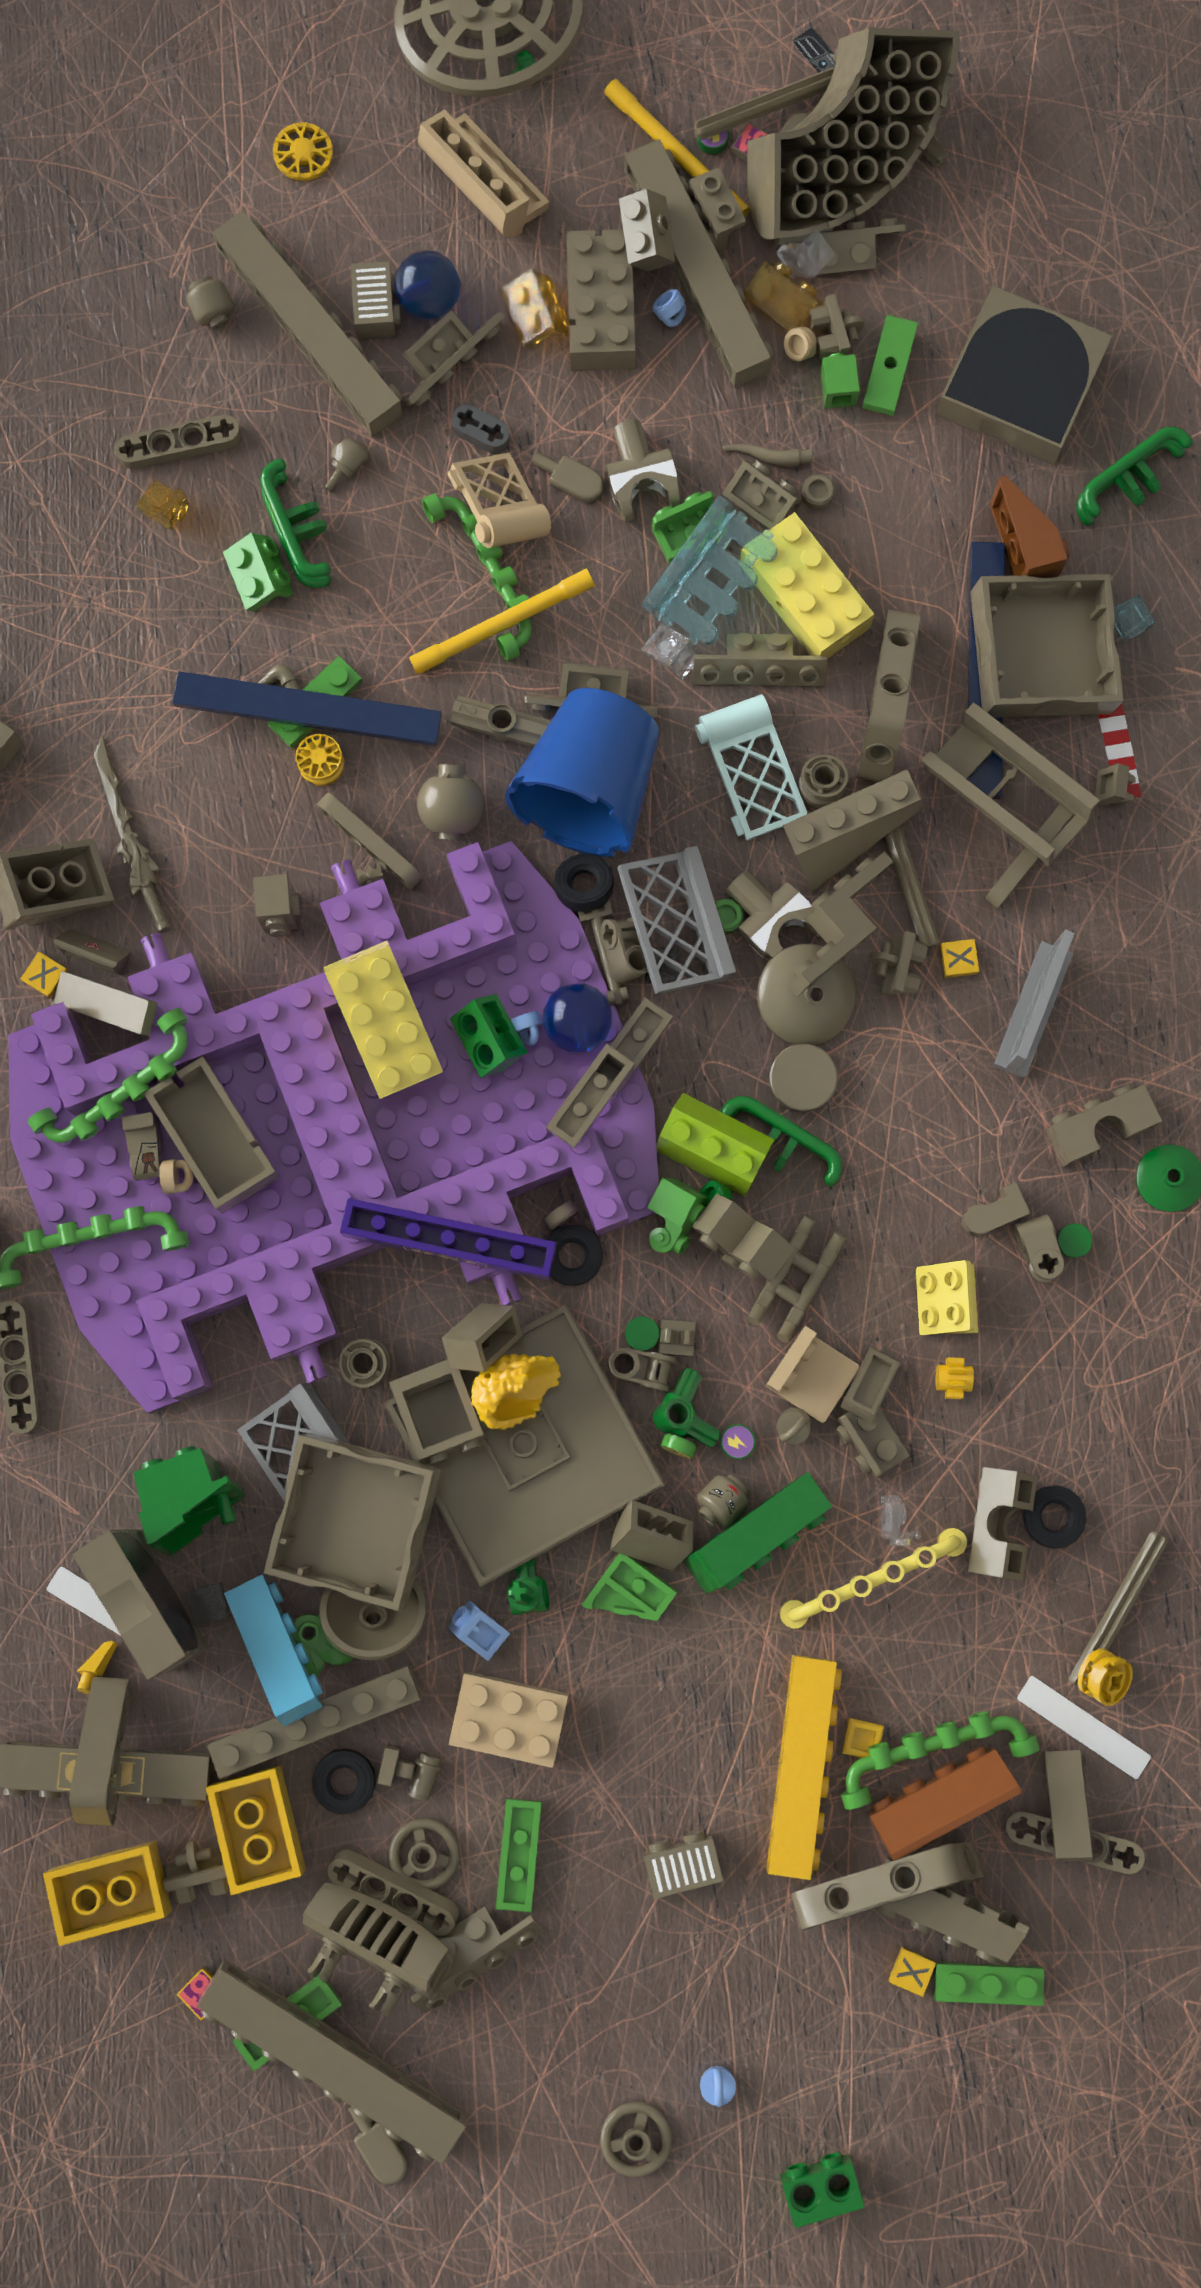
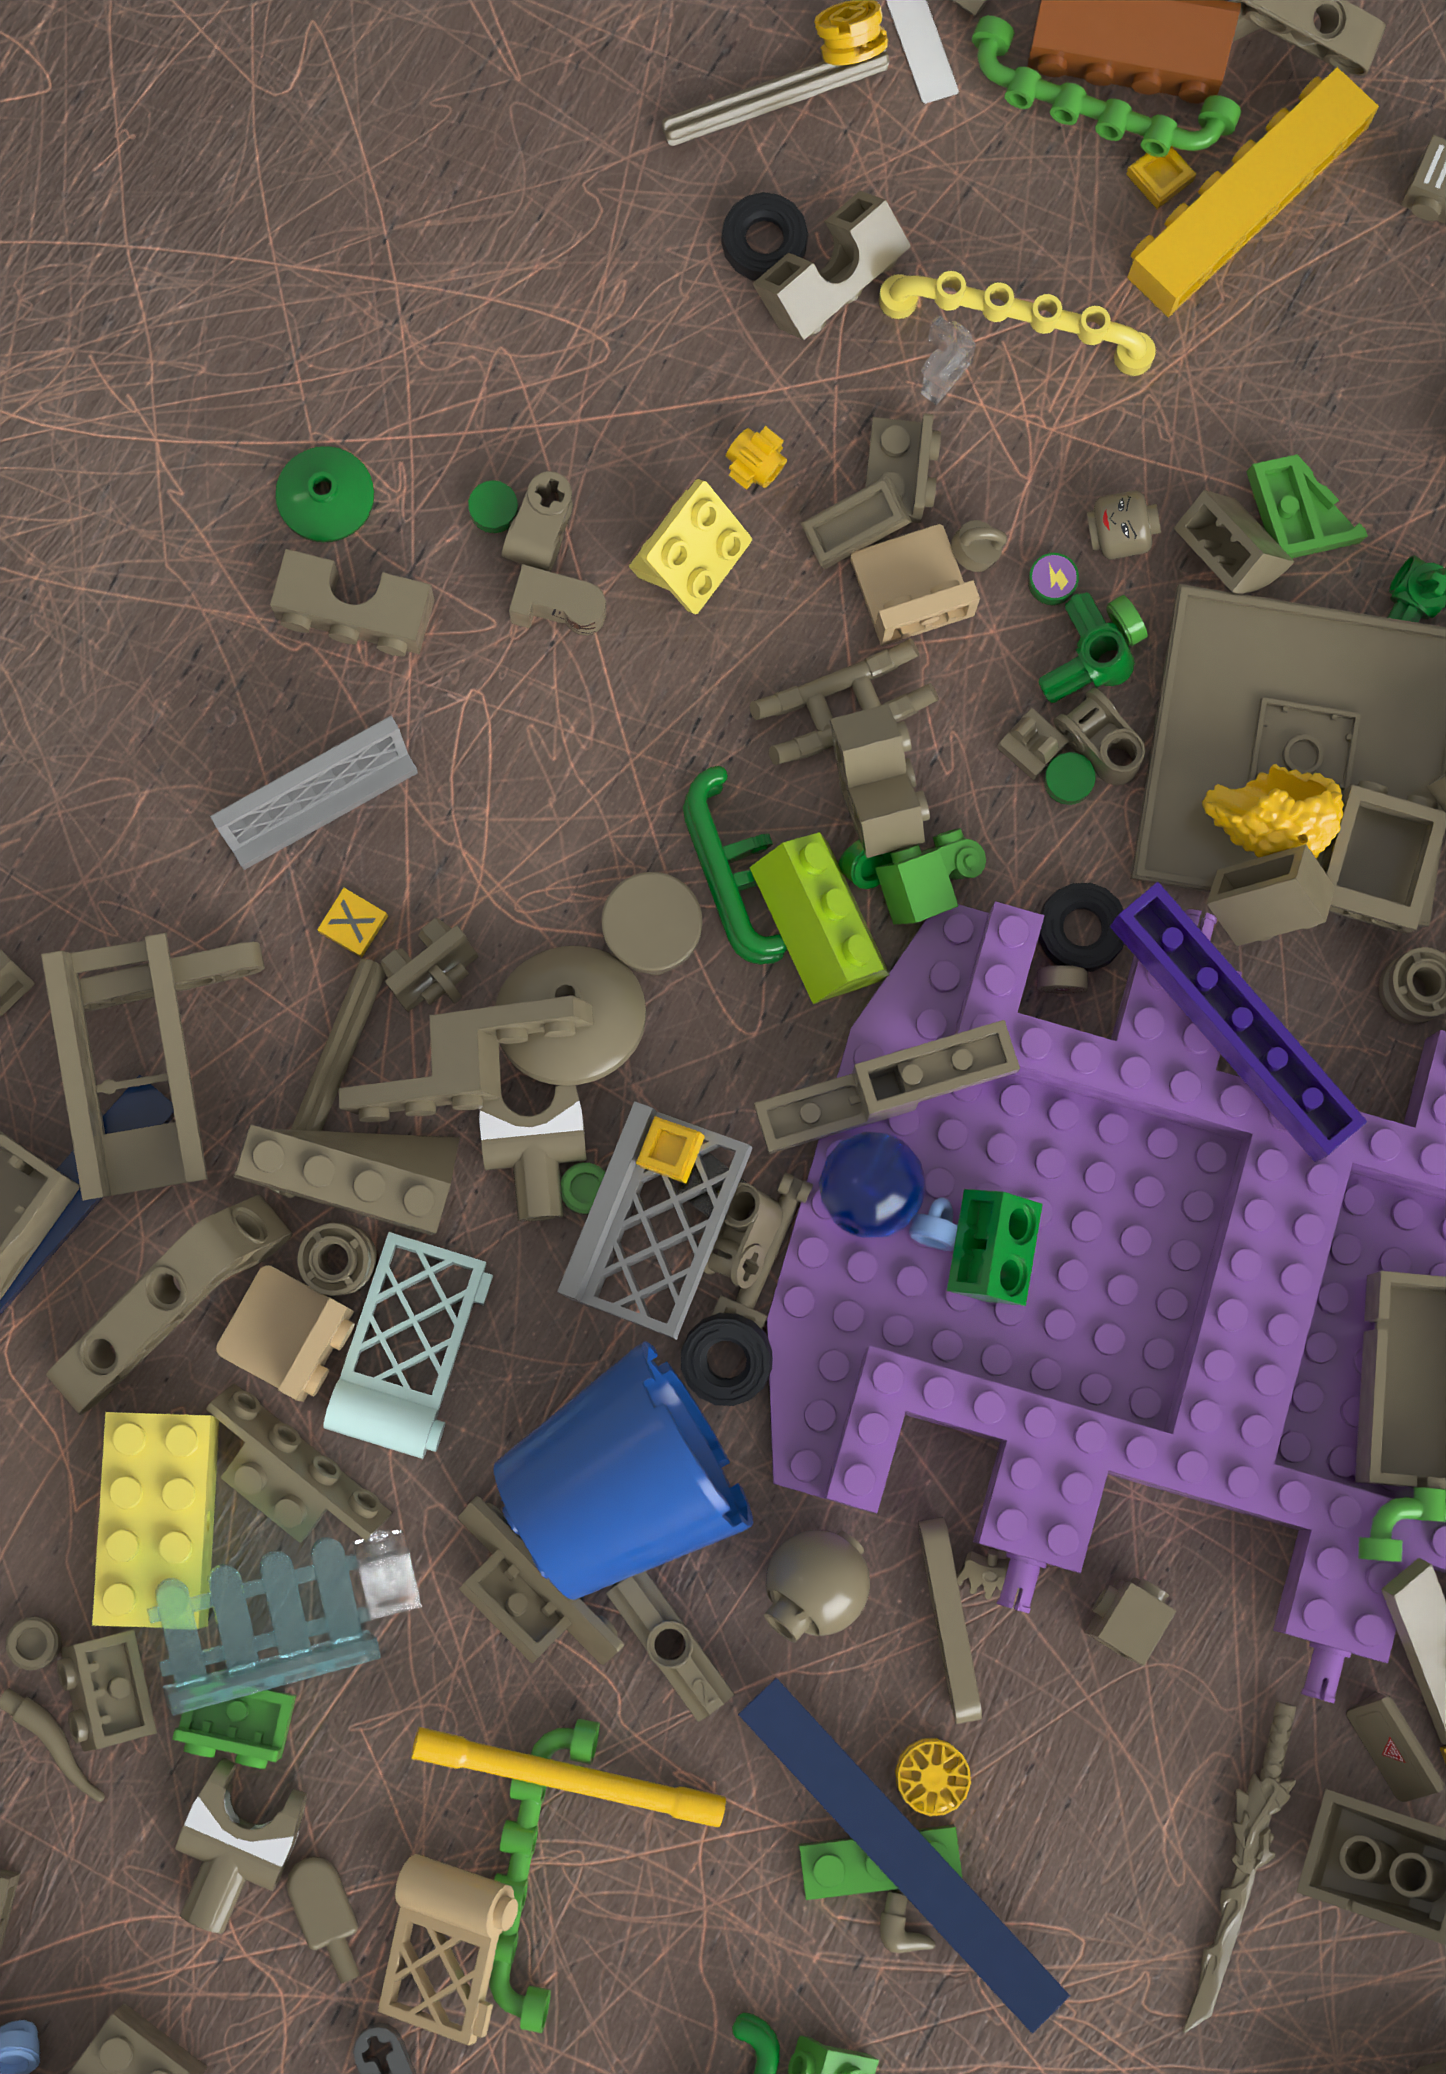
camera: 150 degrees left, 0 degrees up
(383, 1019) = (1113, 1360): light yellow brick -> none
(697, 960) = (670, 1149): none -> yellow tile
(757, 1534) = (1111, 454): green wedge -> none
(817, 725) = (285, 1333): none -> tan bracket

